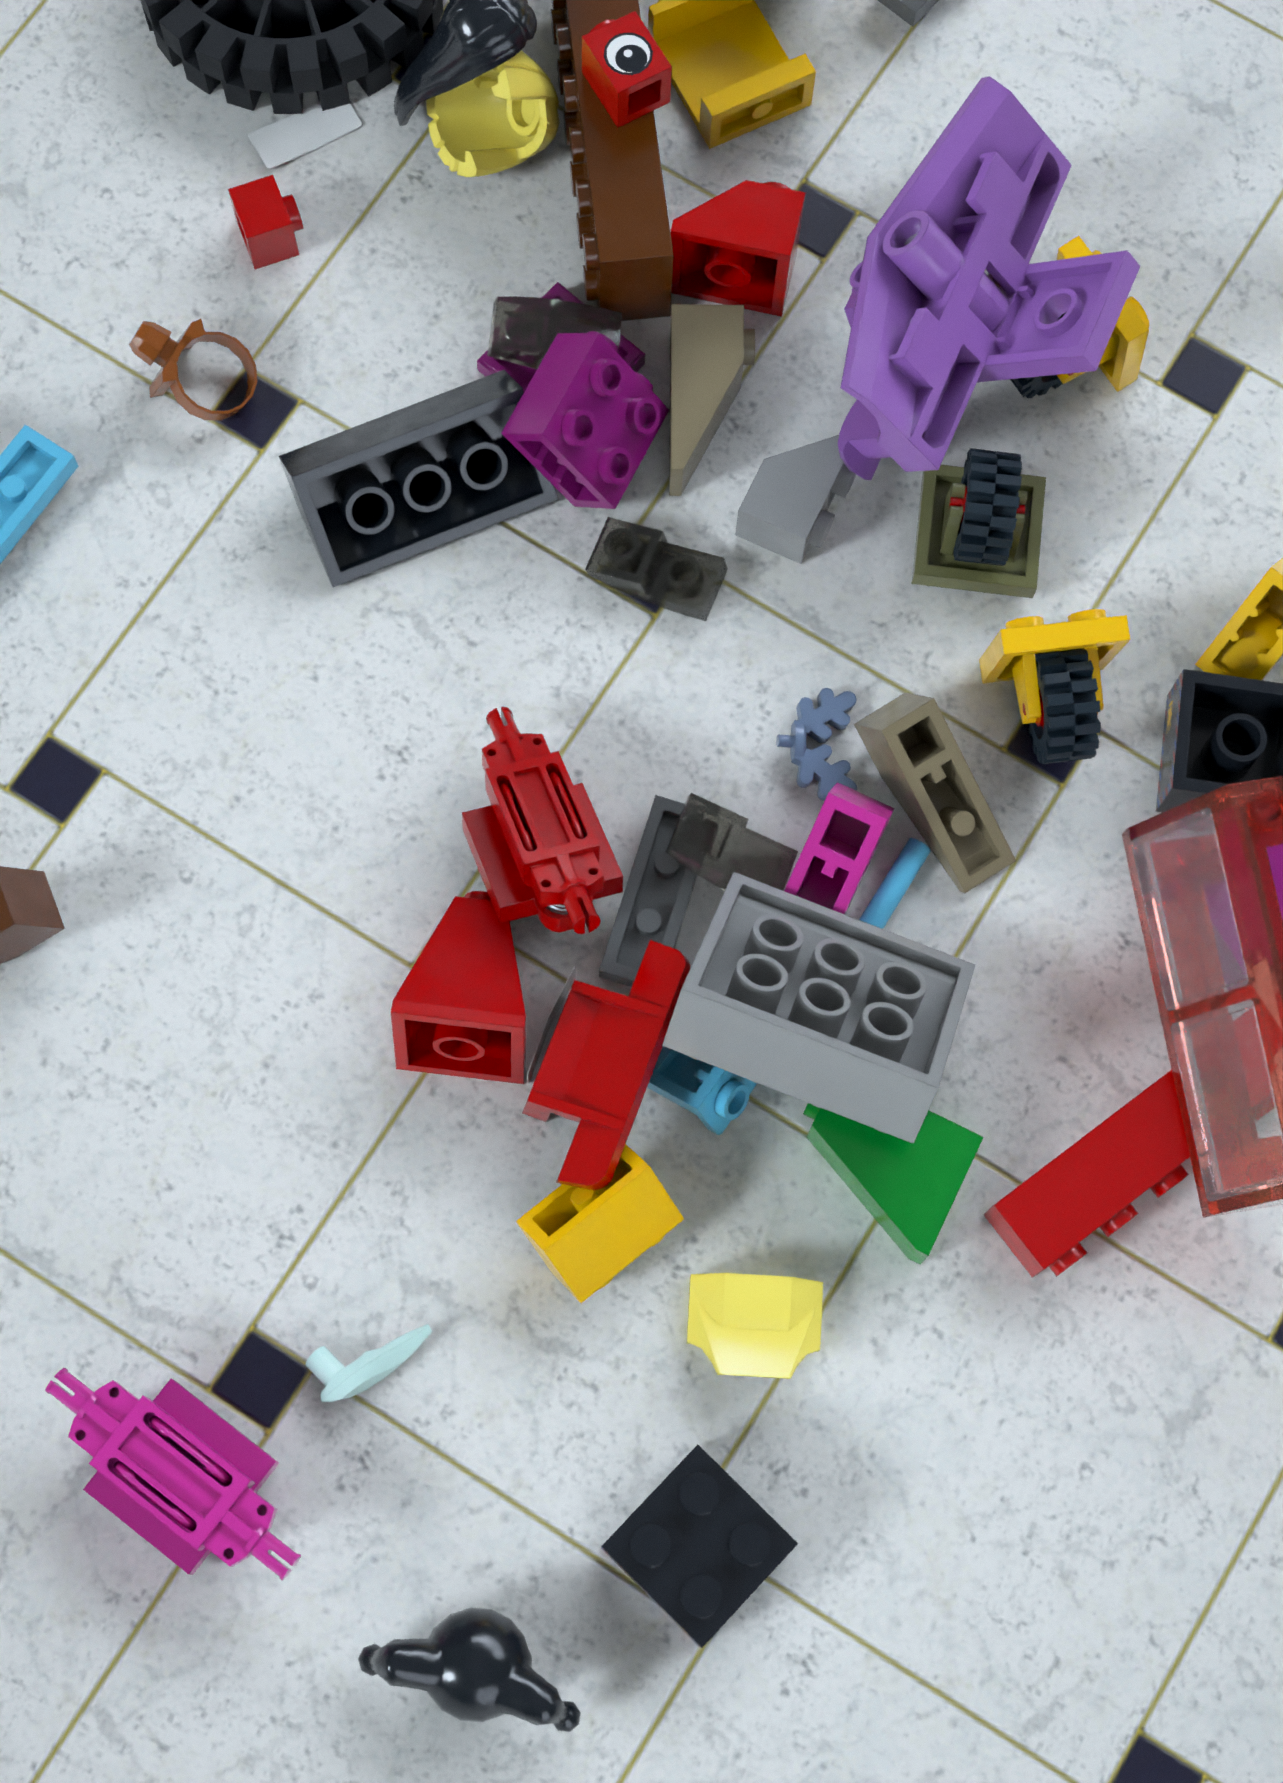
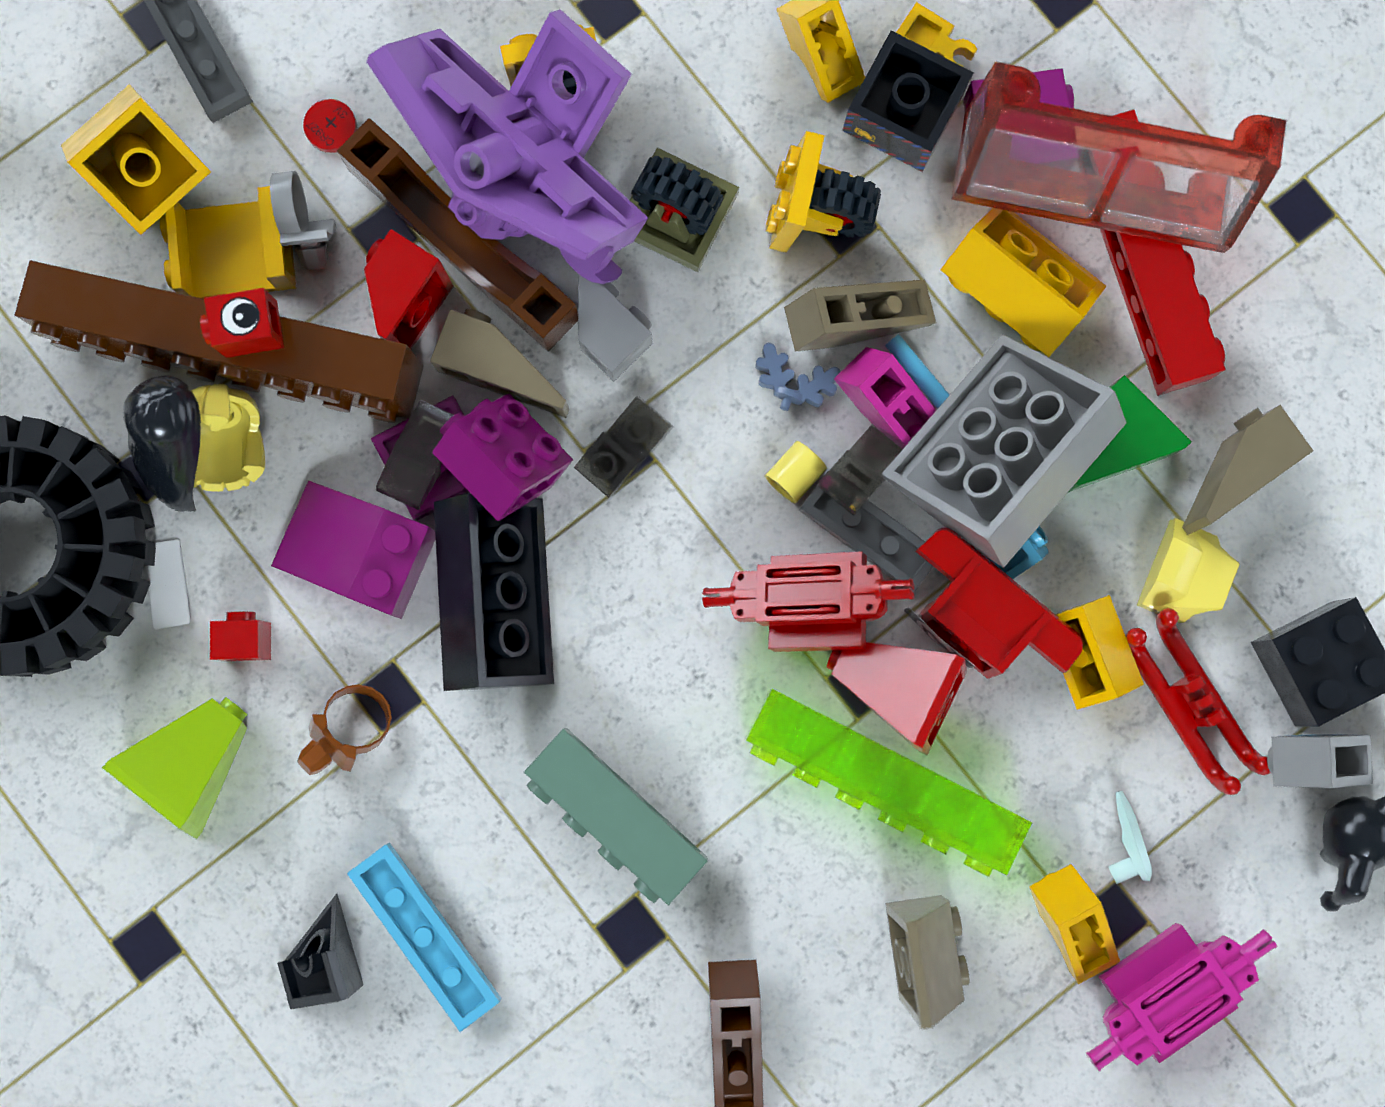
camera: 70 degrees left, 10 degrees up
(94, 207) = (184, 763): none -> lime slope
(127, 1122) = (926, 957): none -> dark tan slope
(189, 701) = (615, 816): none -> sand green brick
(232, 1317) = (1075, 922): none -> yellow arch
(340, 1018) = (888, 782): none -> clear neon green brick
(414, 313) = (355, 549): none -> magenta slope
(557, 1568) = (1320, 760): none -> light grey brick
(584, 1386) = (1193, 704): none -> red piece
(699, 773) = (796, 472): none -> light yellow beam
(778, 126) = (292, 221): none -> light grey piece
(817, 342) = (487, 263): none -> reddish brown arch
(918, 115) = (329, 125): none -> red piece
(944, 1355) = (1246, 463): none -> dark tan slope
(1065, 978) = (1023, 279): none -> yellow slope

